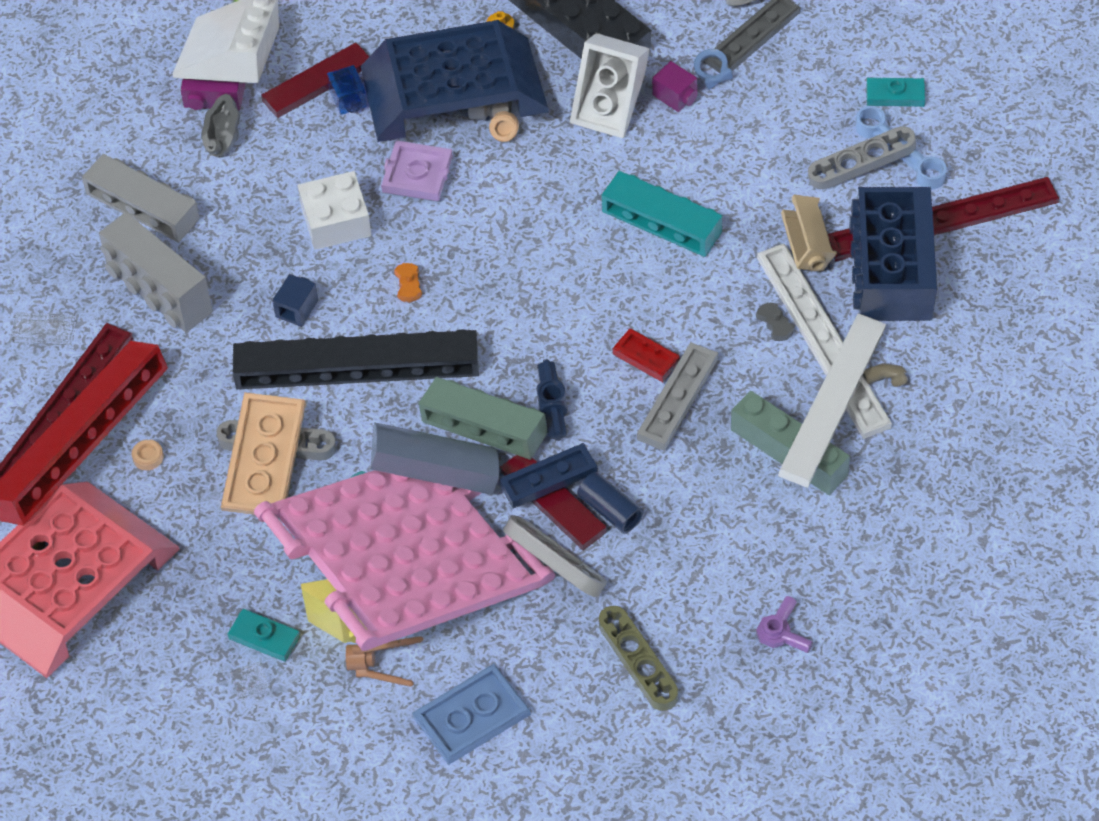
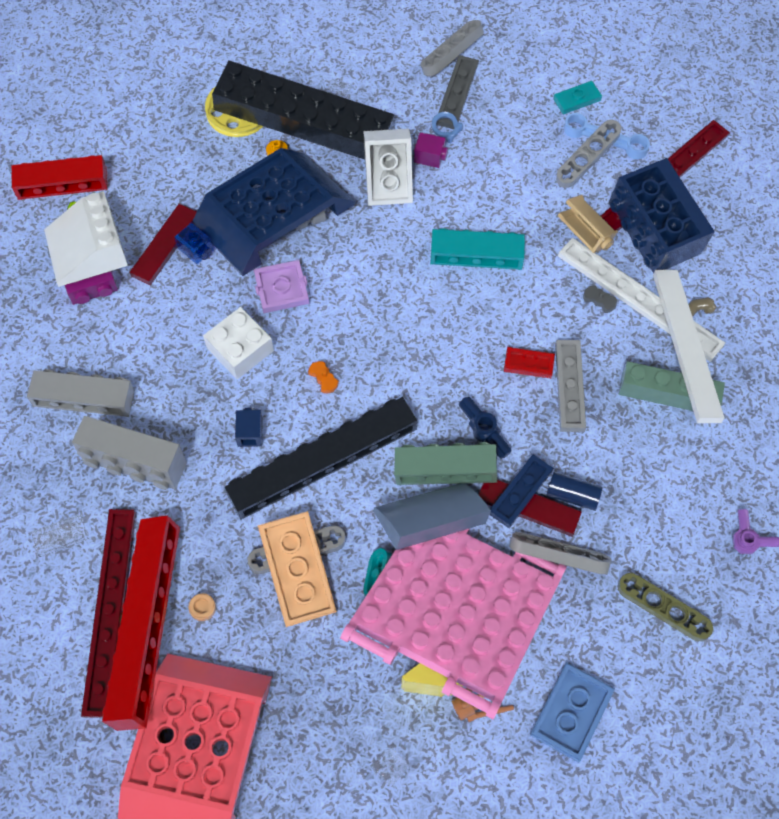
camera: 30 degrees left, 10 degrees up
(221, 126) = (113, 310): dark grey arm -> none
(263, 635) = (379, 721): teal plate -> none
(504, 126) = (326, 227): light nougat tile -> none

